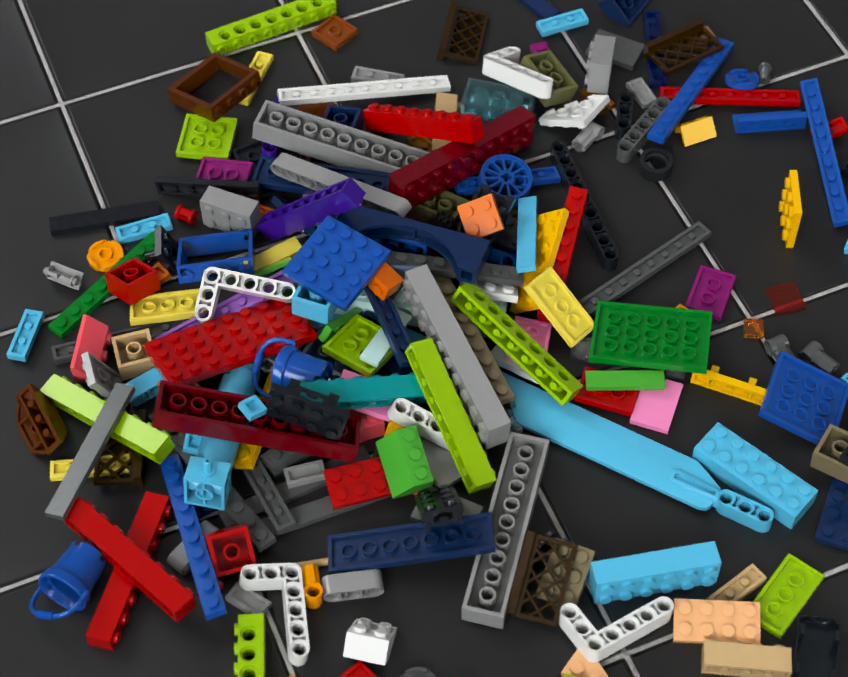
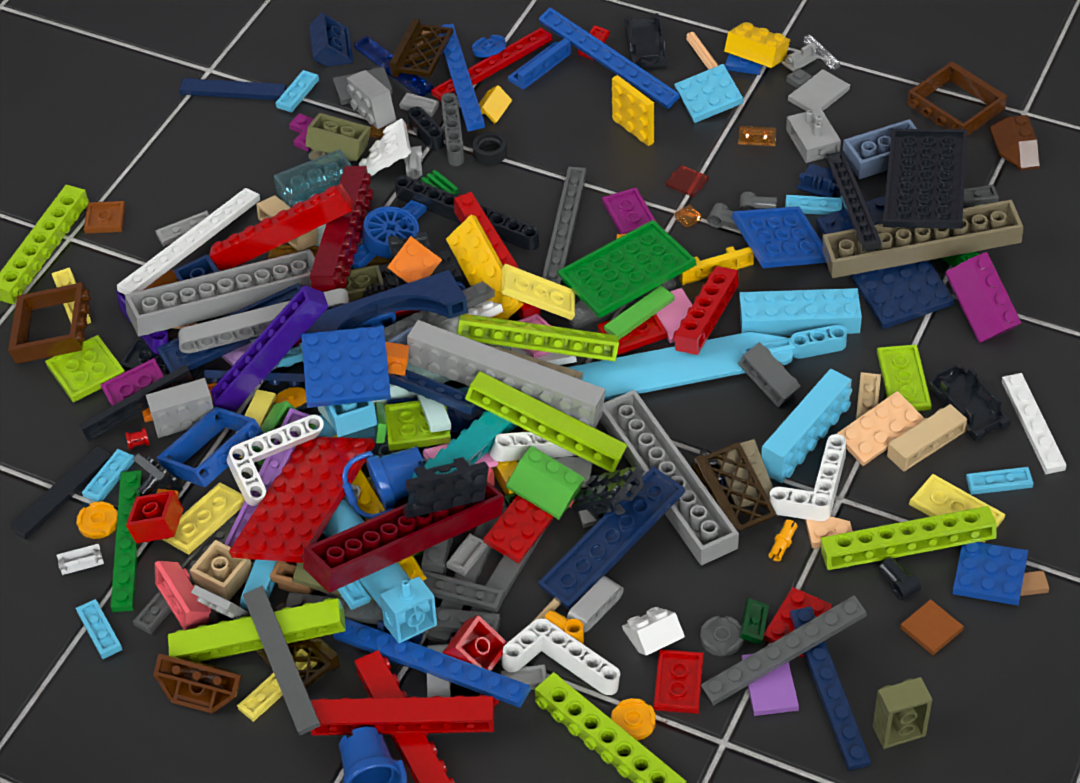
camera: 40 degrees left, 5 degrees down
(252, 407) = (399, 517): medium azure plate -> none
(451, 31) = (209, 154): dark brown fence -> none
(505, 67) = (289, 151): white beam -> none
(527, 234) = (460, 257): medium azure tile -> none
(541, 651) = (783, 540): none -> light orange pin
(588, 158) = (441, 182): none -> green tile
(670, 507) = (769, 374): none -> dark grey brick
(678, 417) = (706, 310): none -> red brick
(765, 69) = (497, 28): dark grey pin -> none

